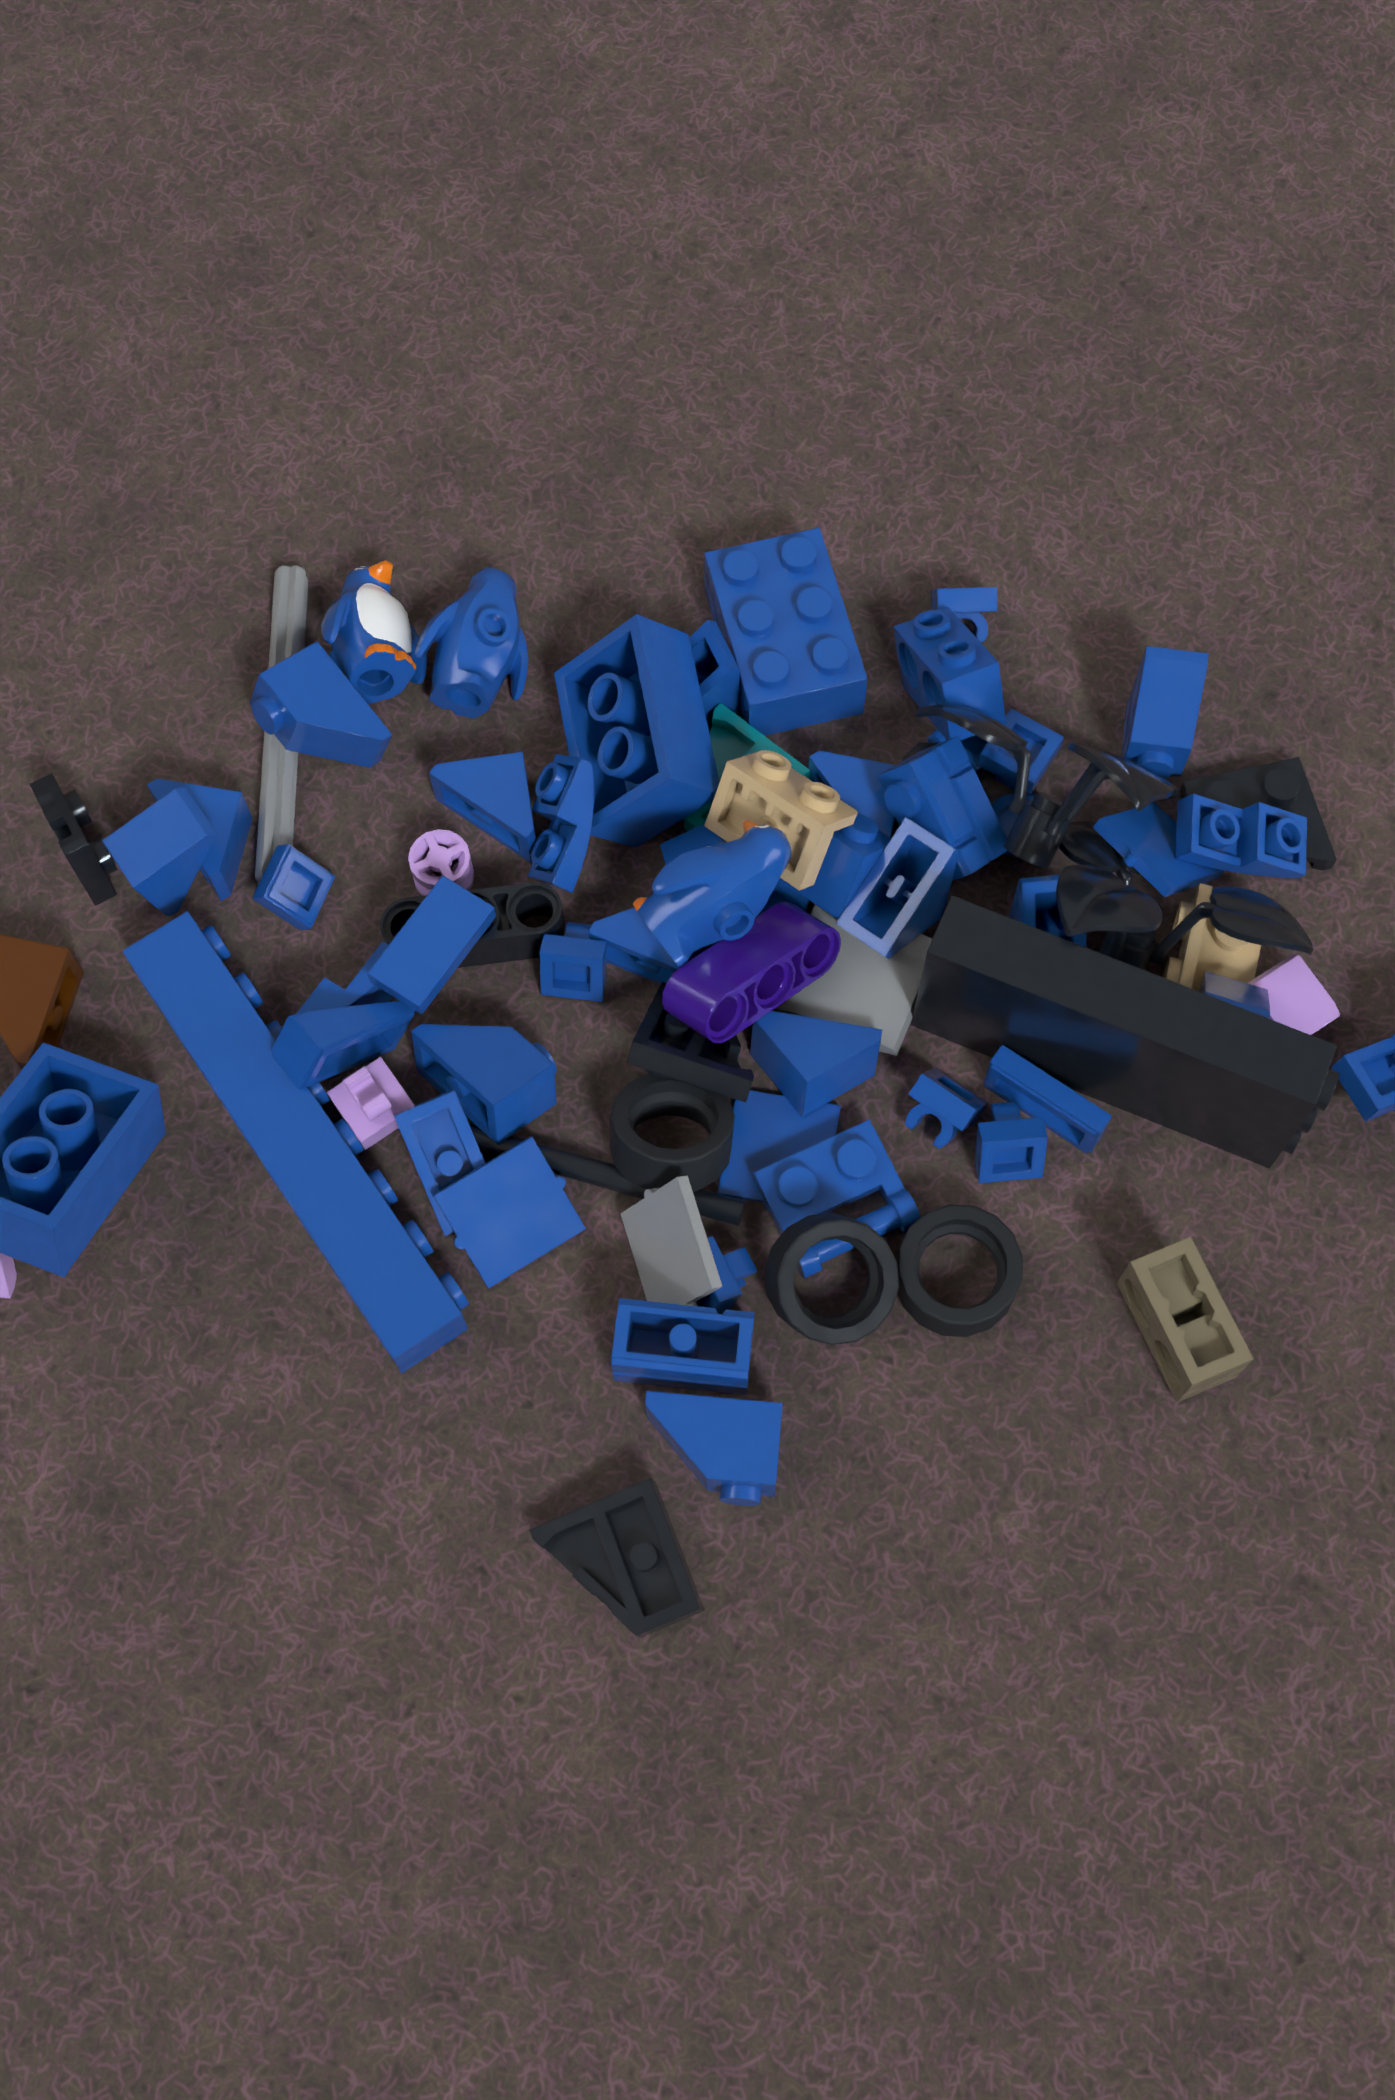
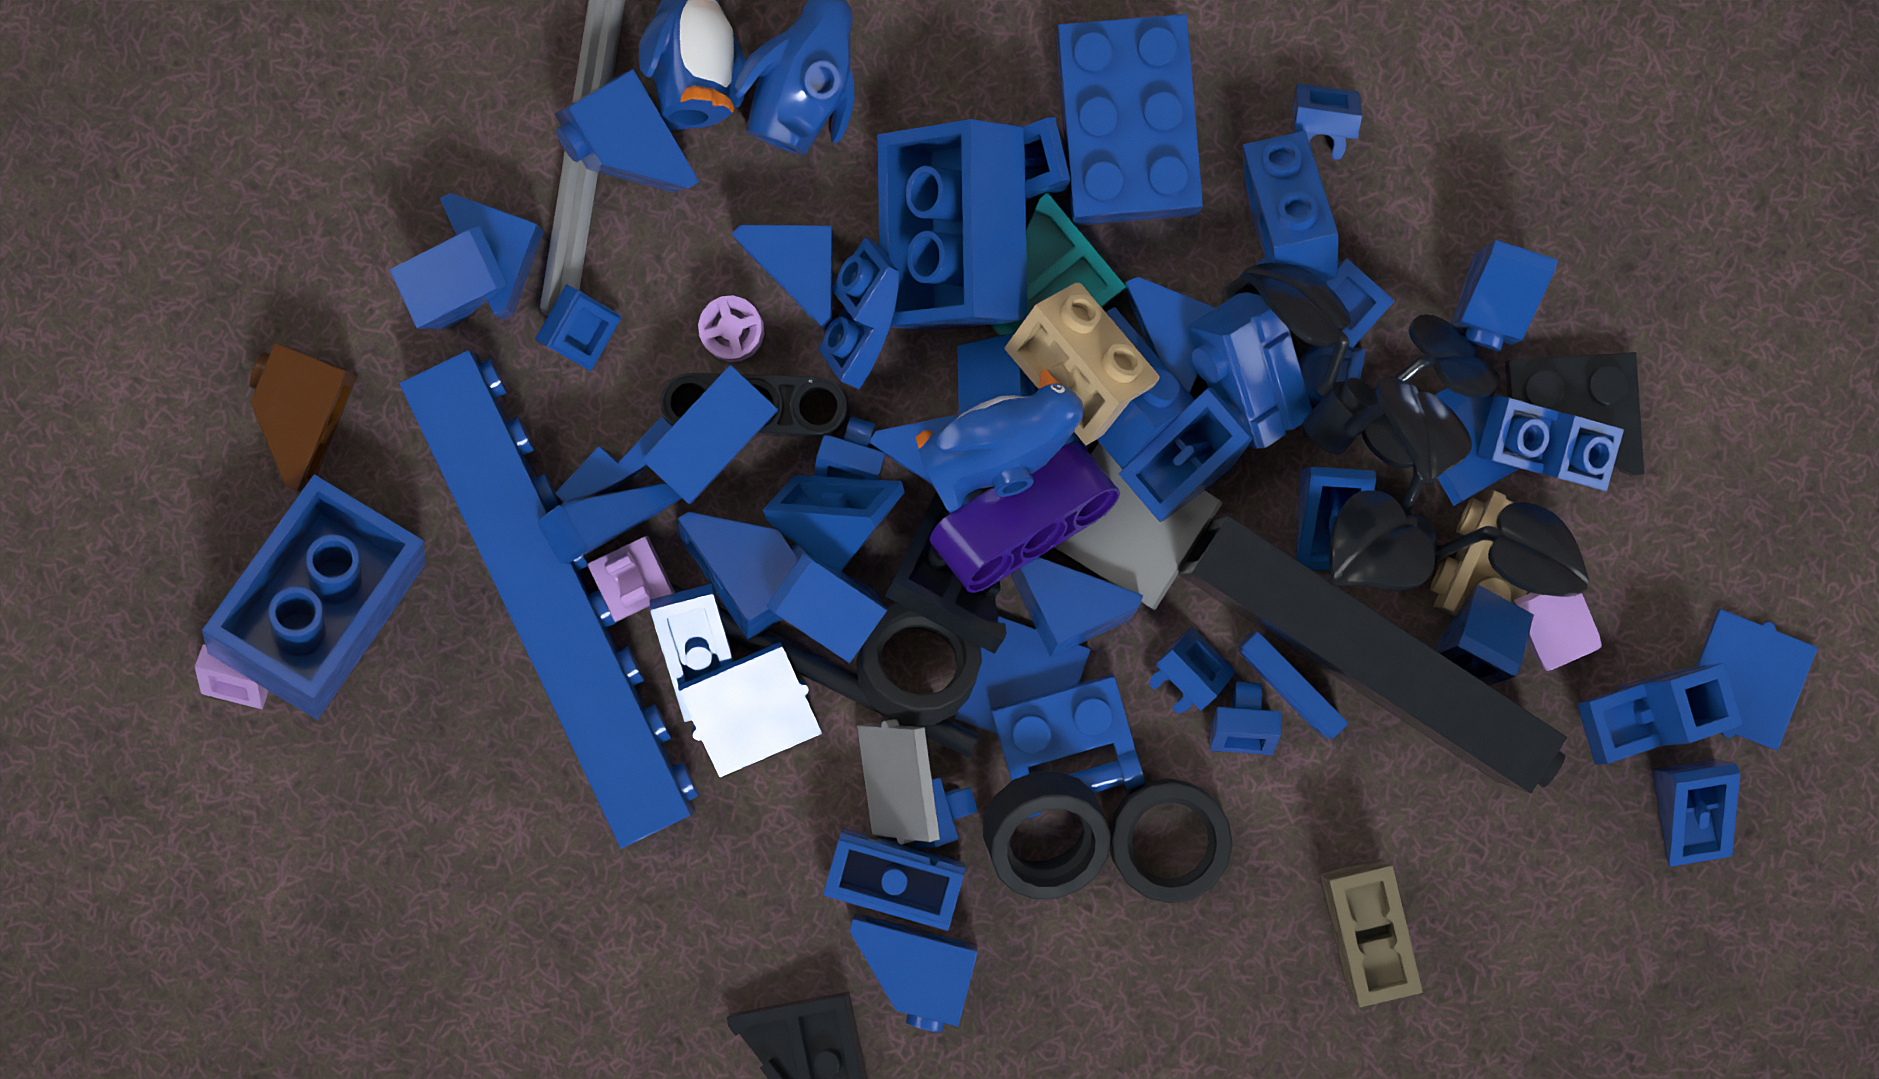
camera: 10 degrees right, 20 degrees up
(66, 818) = (350, 210): black wing -> none
(569, 1081) = (828, 606): none -> blue slope
(571, 1014) = (832, 514): none -> blue slope

